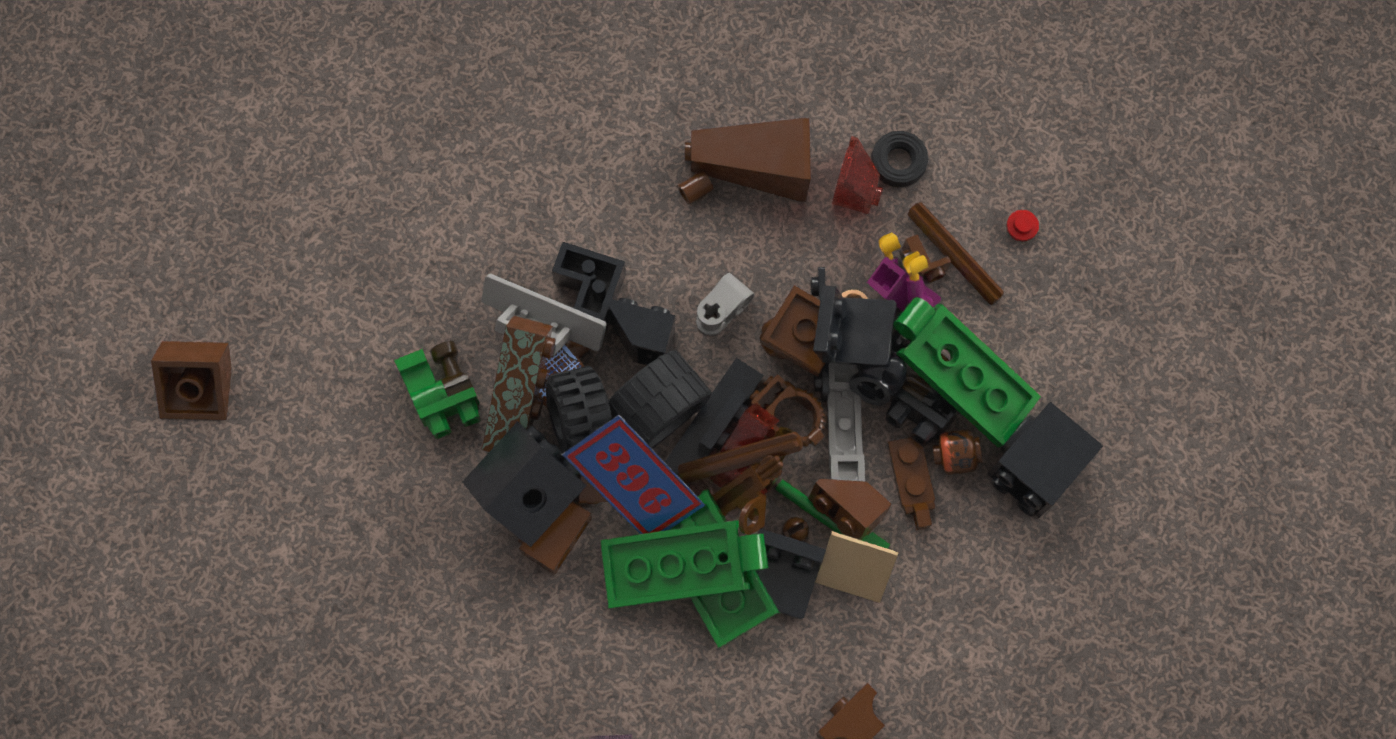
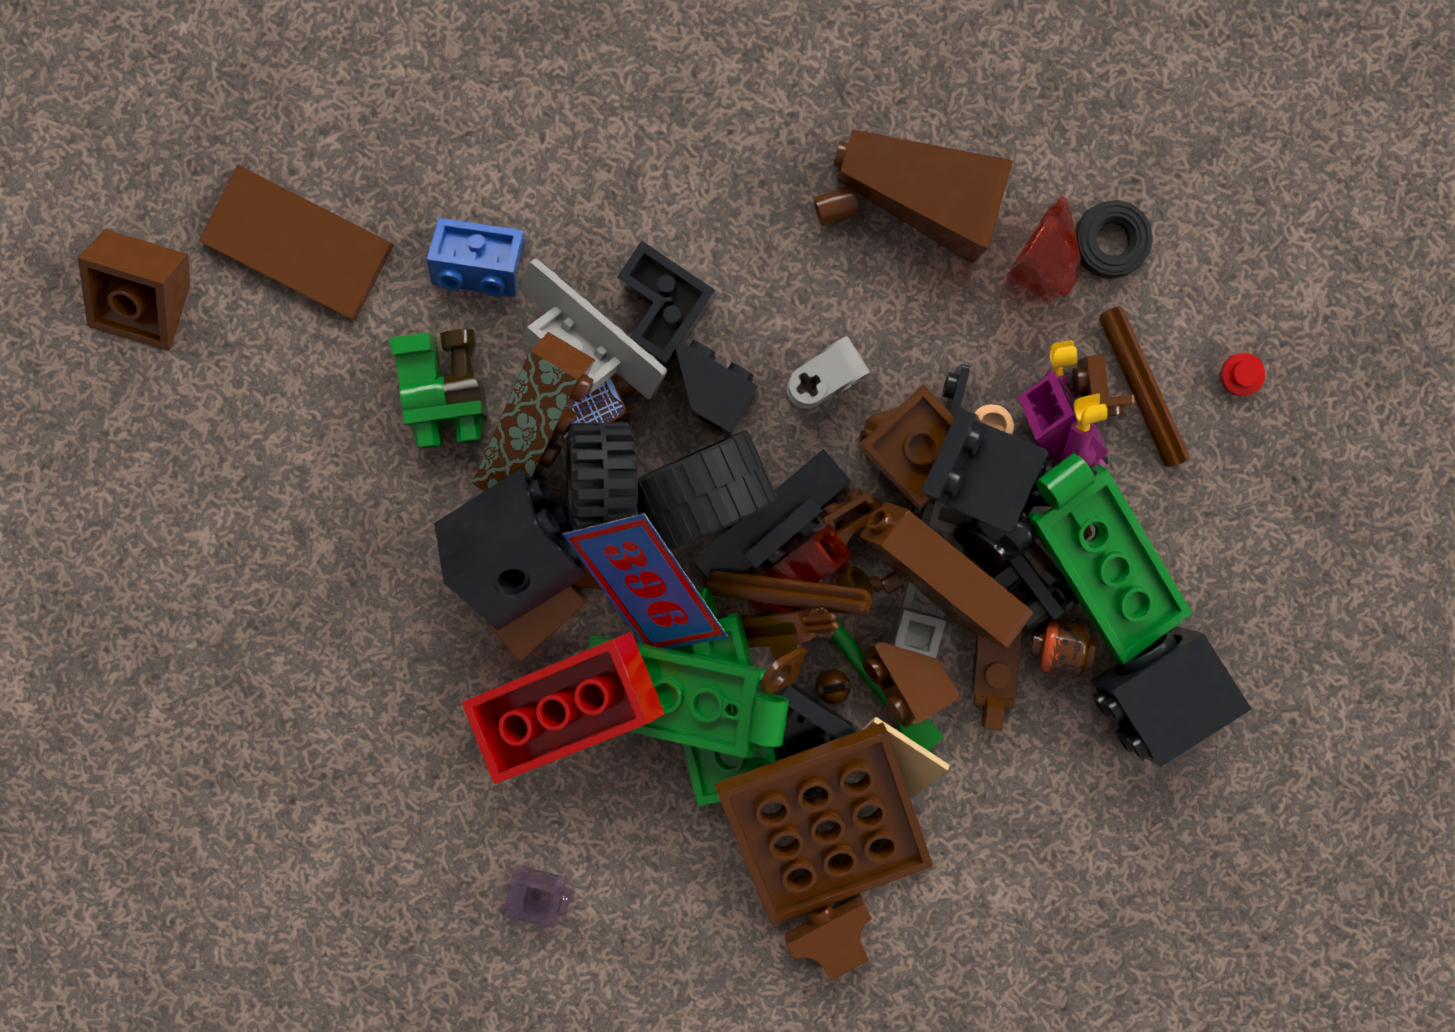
camera: 15 degrees right, 15 degrees up
(306, 316) = (296, 242): none -> reddish brown tile
(442, 291) = (475, 257): none -> blue bracket
(594, 593) = (563, 708): none -> red brick
(843, 632) = (799, 817): none -> reddish brown piece
(851, 415) = (945, 575): none -> reddish brown slope

